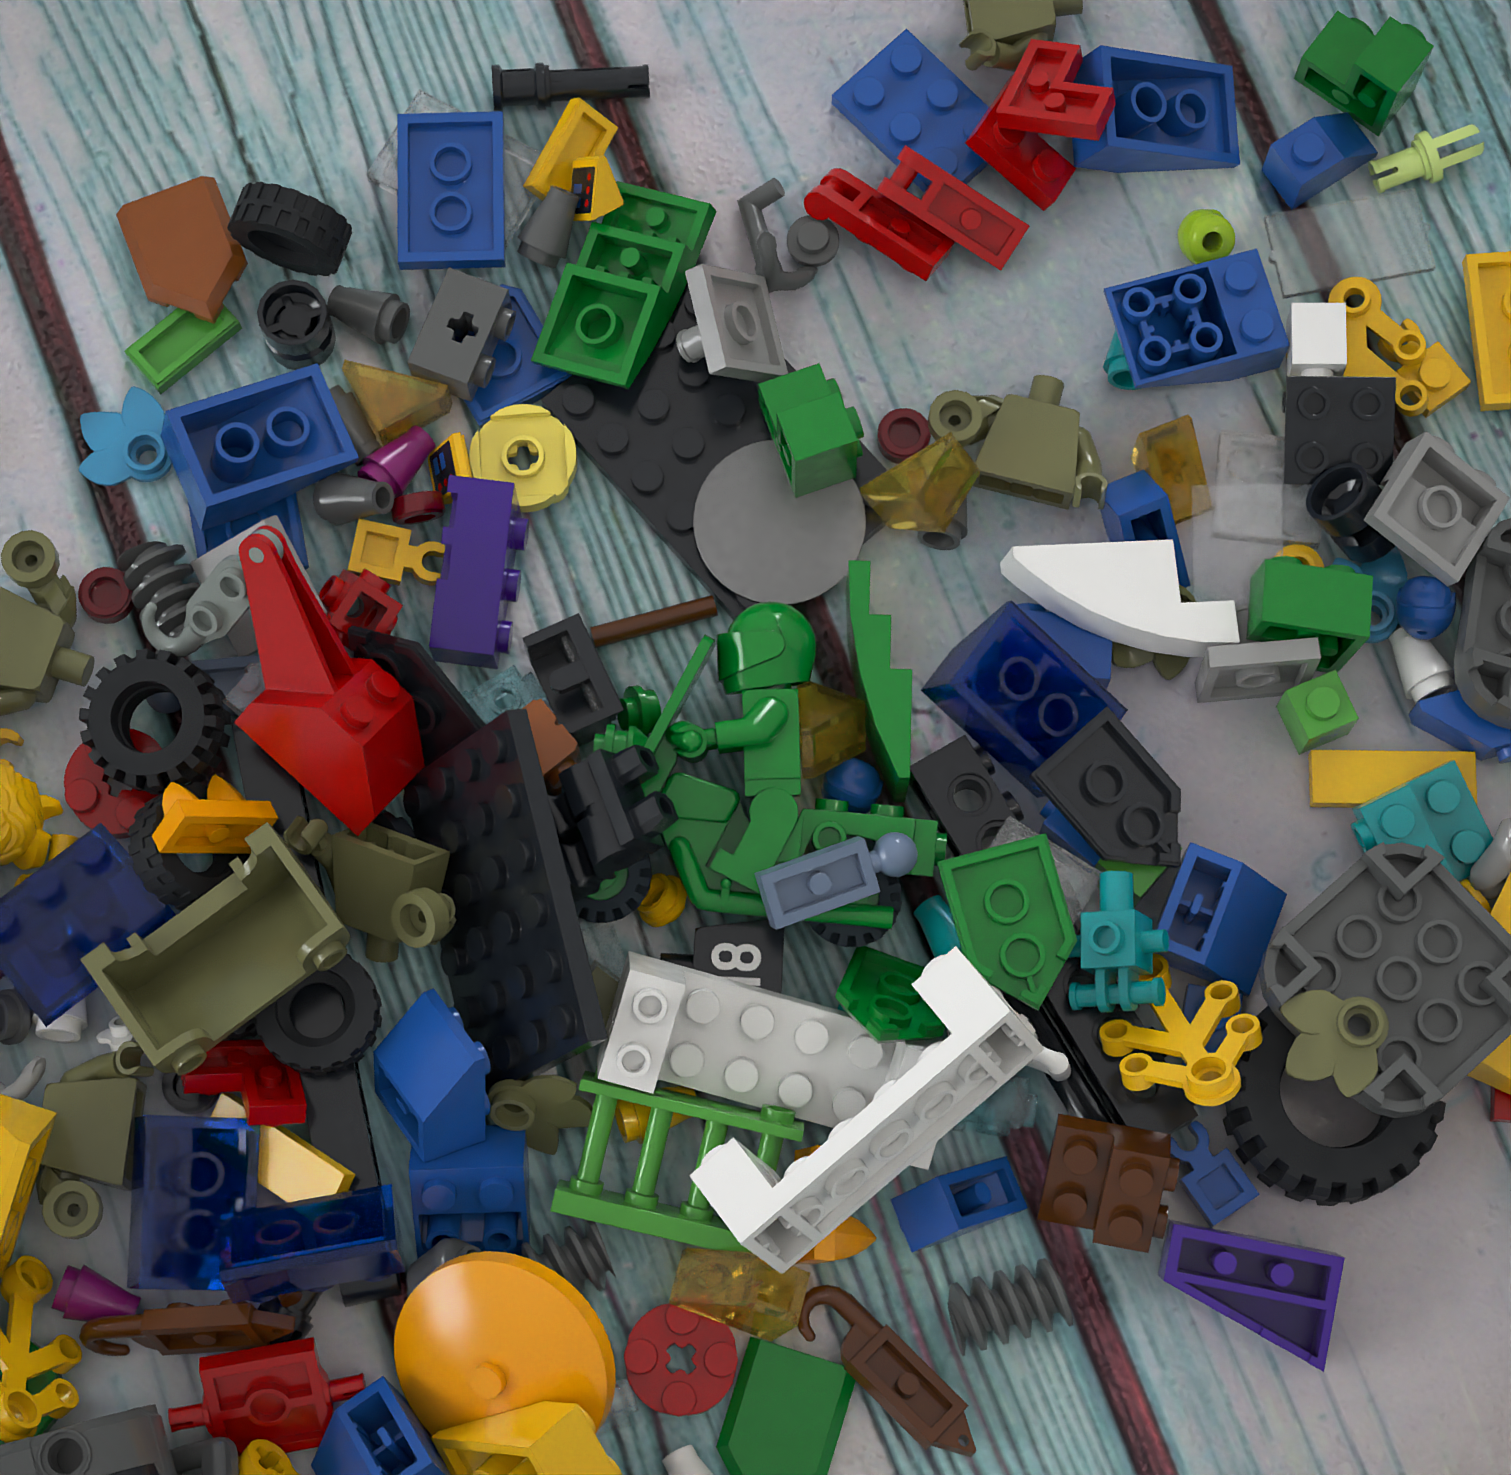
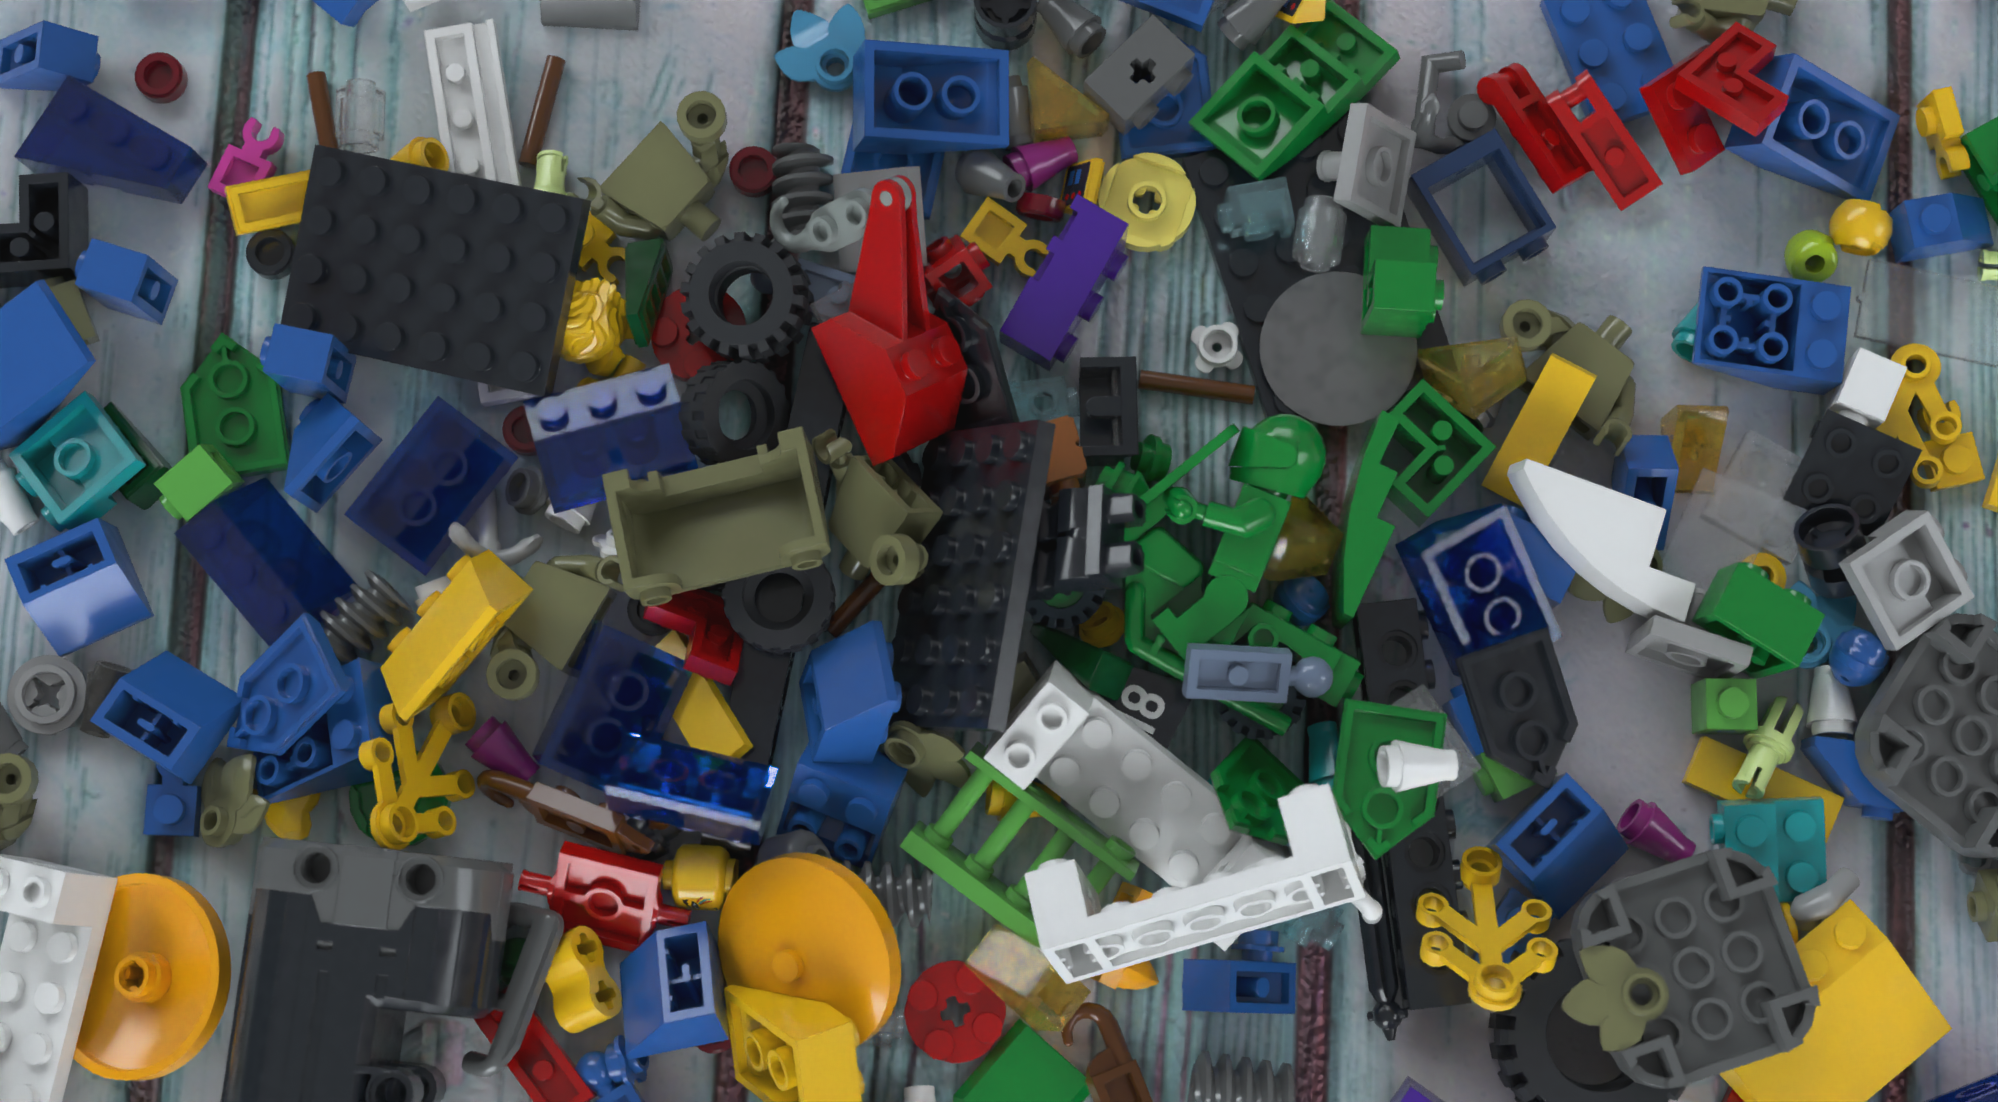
camera: 25 degrees right, 5 degrees up
(44, 753) = (646, 285): none -> dark green slope
(209, 824) = (756, 406): light orange tile -> none
(357, 1335) = (700, 876): none -> yellow head
(400, 985) = (854, 605): none -> reddish brown piece
(638, 417) = (1257, 210): none -> clear light blue brick
(661, 558) = (1223, 334): none -> white plate
(667, 940) = (1089, 664): none -> dark green slope
(710, 415) = (1319, 234): none -> clear brick
(819, 291) = (1482, 151): none -> dark blue window
(902, 434) = (1475, 318): dark red tile -> none
(927, 575) = (1443, 447): none -> green brick
(959, 1152) = (1258, 945): none -> blue plate
(1012, 507) = (1541, 421): none -> yellow tile
(1033, 897) = (1414, 765): none -> white cone
(1109, 1181) = (1372, 1025): reddish brown plate -> none
(1120, 945) = (1467, 832): teal piece -> none
(1215, 1182) = (1459, 1064): blue plate -> none
(1241, 188) = (1860, 227): none -> yellow piece
(1274, 57) = (1941, 124): none -> yellow plate
(1302, 867) = (1653, 832): none -> magenta cone
(1378, 735) = (1767, 748): none -> yellowish green arm

